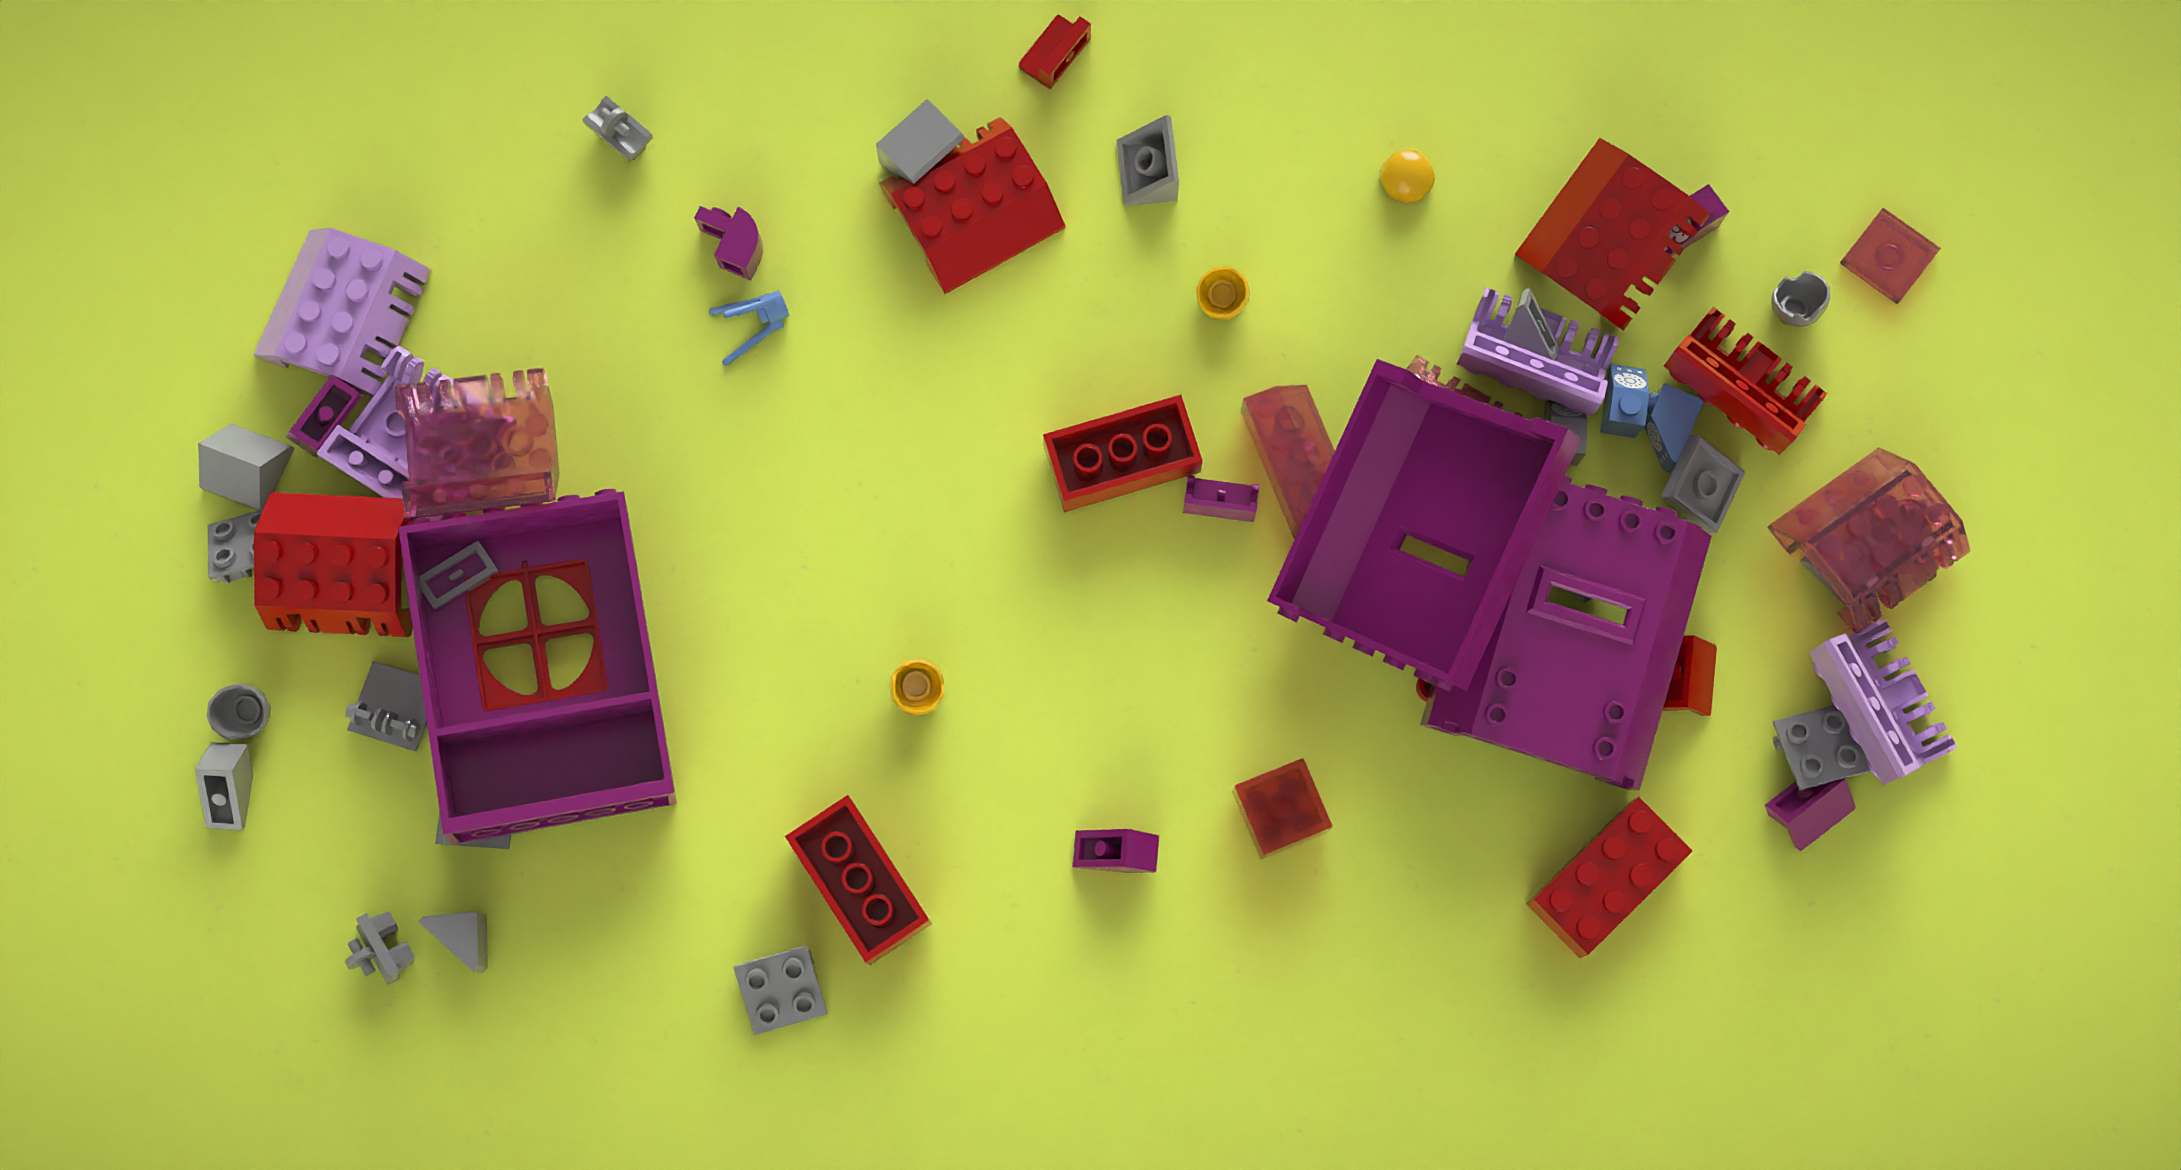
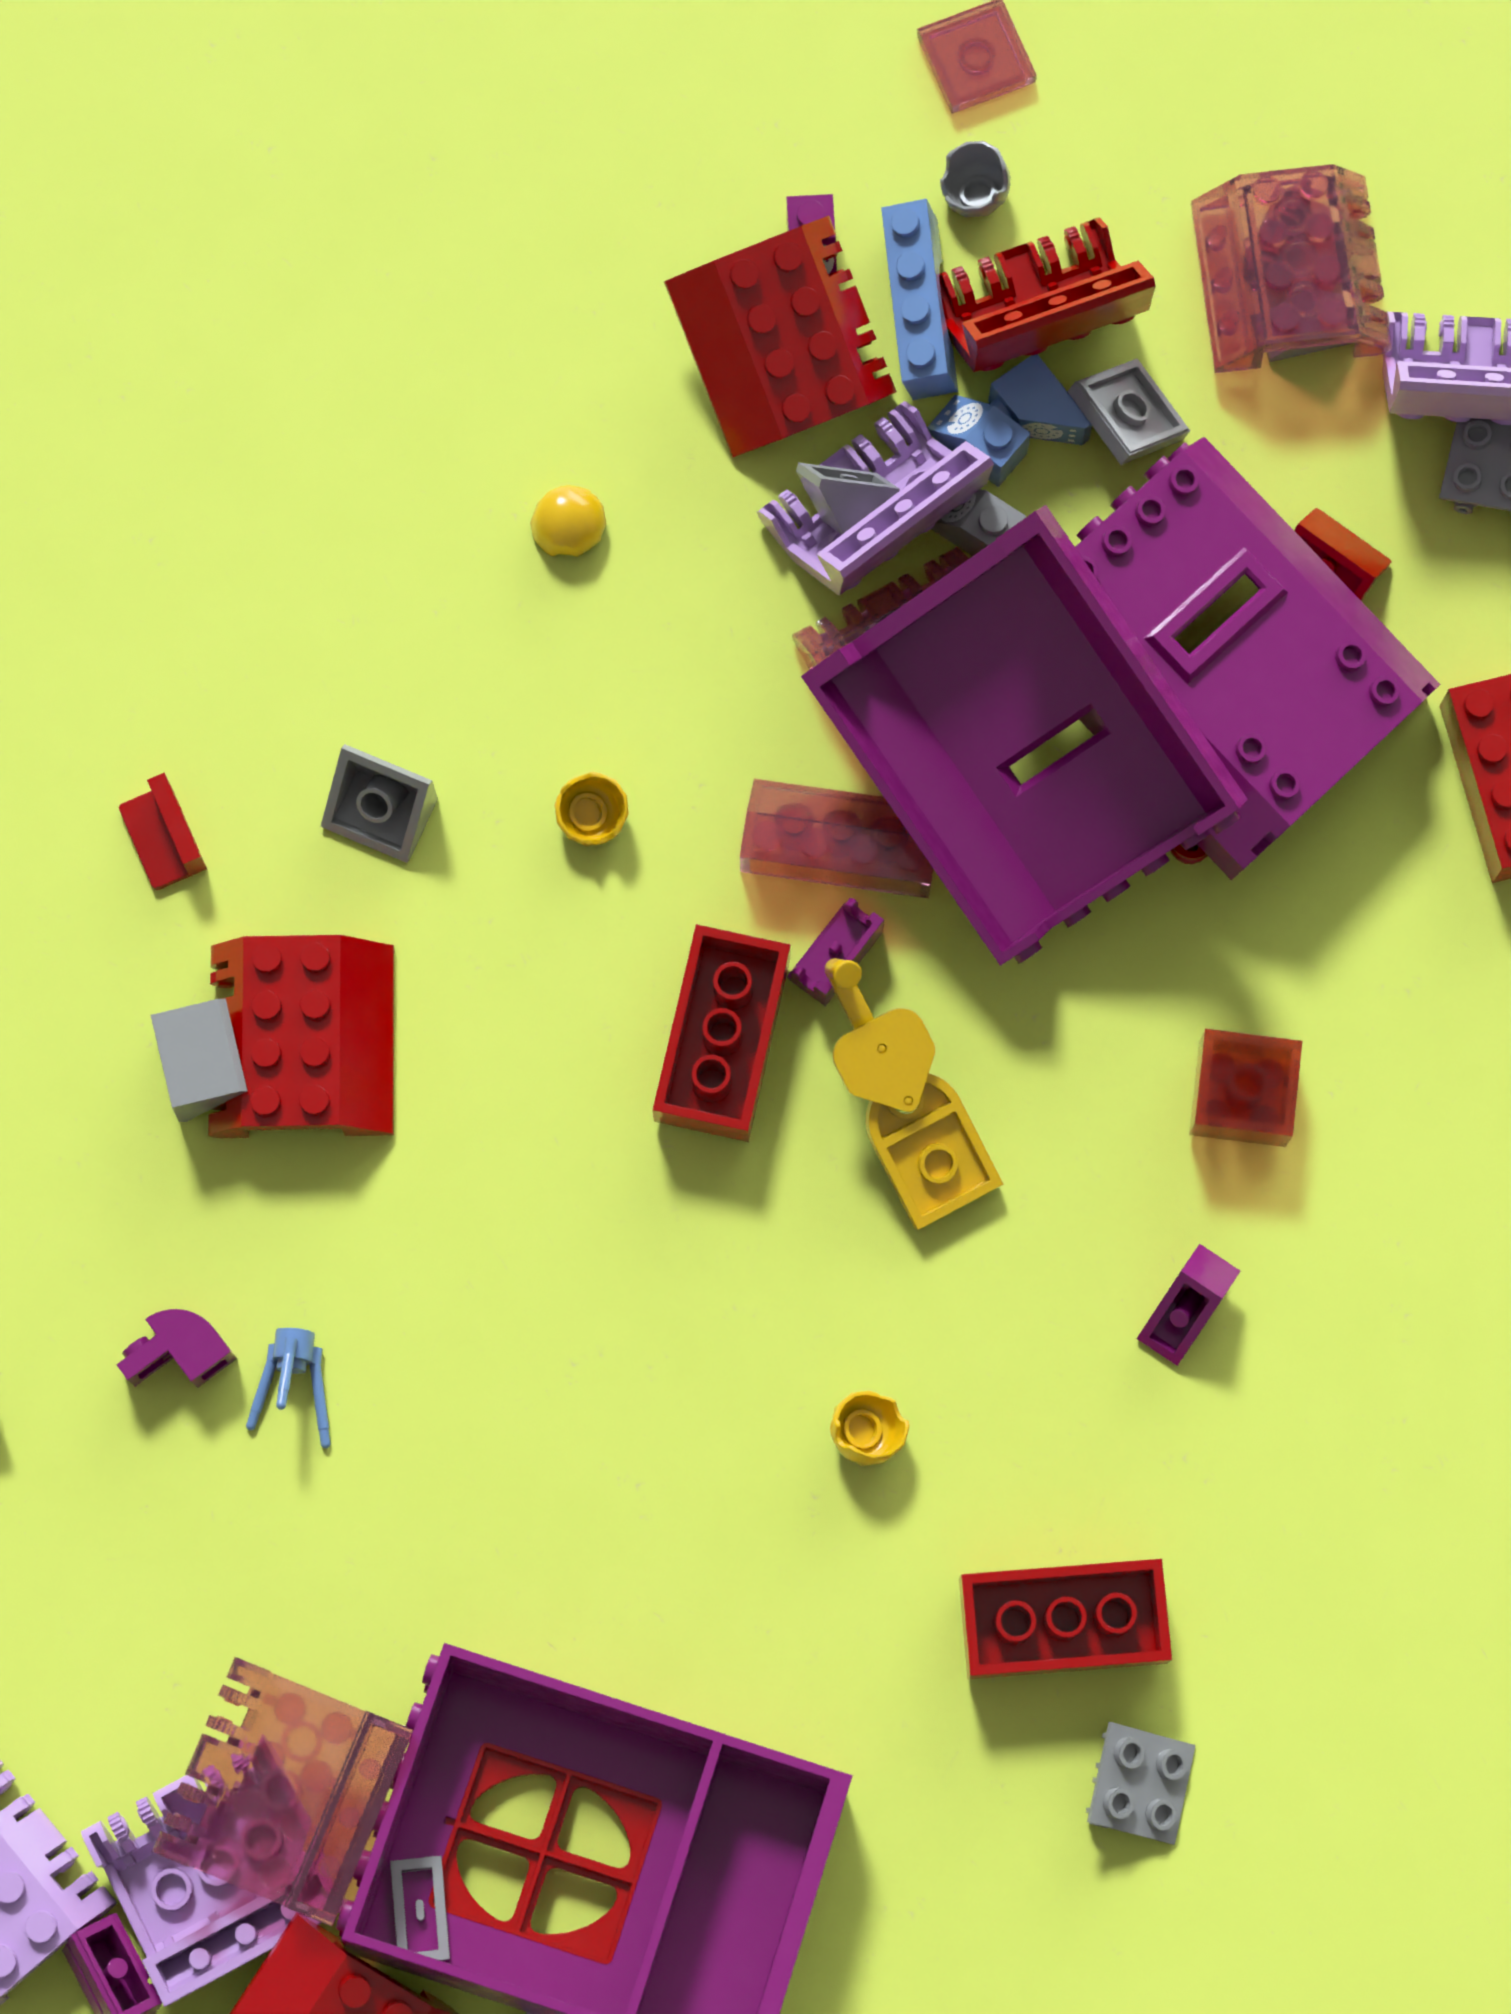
camera: 60 degrees left, 0 degrees up
(1120, 624) = (931, 1147): none -> yellow plate
(1668, 323) = (919, 317): none -> medium blue arch

